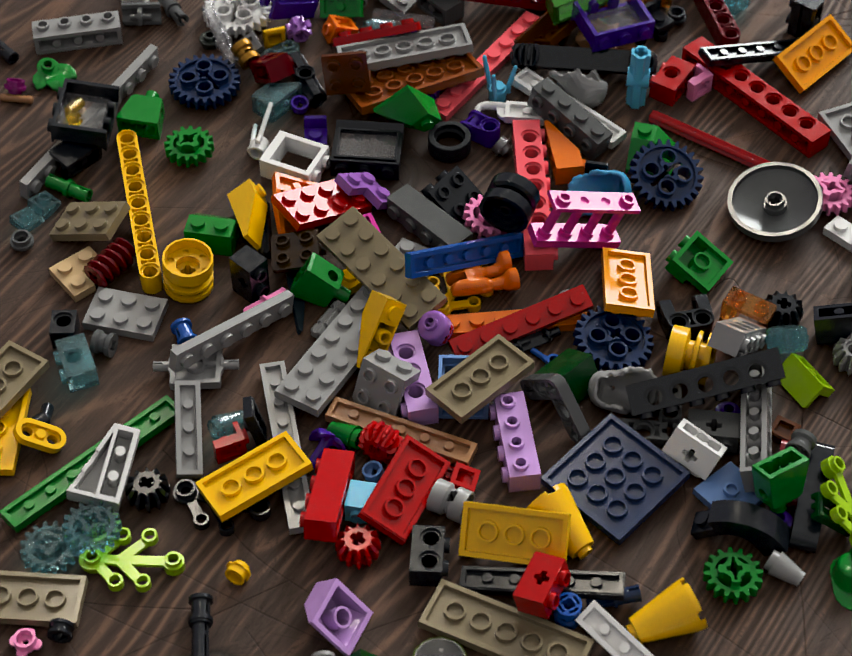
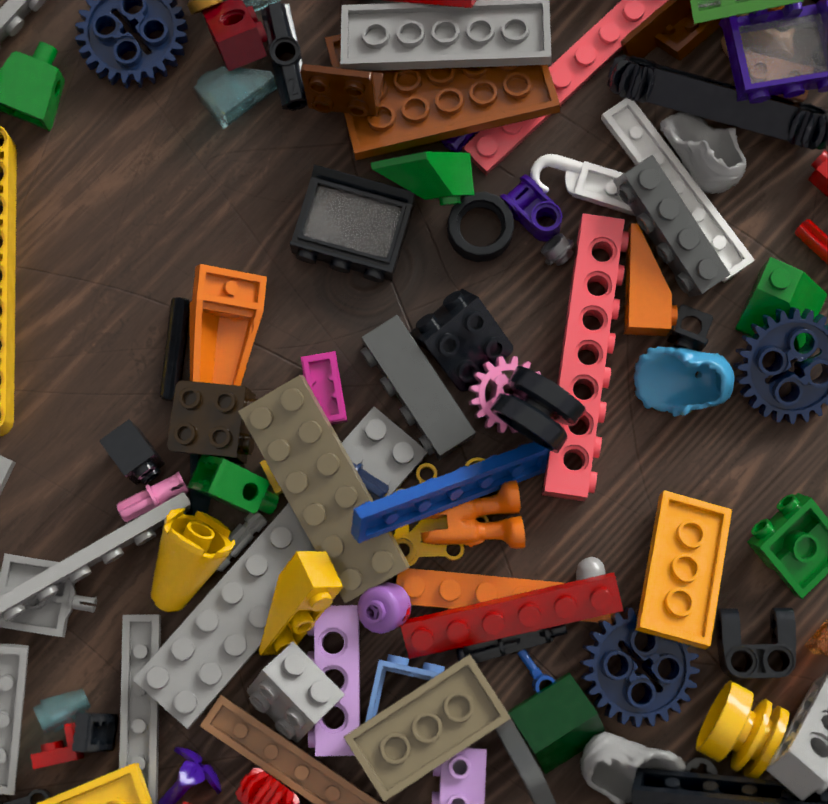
camera: 10 degrees right, 30 degrees up
(184, 330) = (26, 533): blue bush -> none
(188, 270) = (30, 411): yellow wheel -> none
(189, 146) = (102, 155): green gear -> none
(215, 231) = (98, 340): green slope -> none
(250, 211) = (154, 324): yellow slope -> none
(259, 144) = (191, 181): white plant -> none
(285, 142) = (213, 204): white window -> none
(295, 104) = (261, 104): dark purple hinge -> none
(297, 323) = (187, 557): none -> yellow cone
(316, 128) = (282, 171): dark purple bracket -> none
(317, 204) = (262, 329): red plate -> none
(346, 433) = (225, 762): green cone -> none
(363, 184) = (334, 299): medium lavender plate -> none
(497, 89) = (576, 131): medium azure plant -> none
(583, 235) = (644, 460): dark pink fence -> none
(638, 77) = (796, 169): medium azure piece -> none

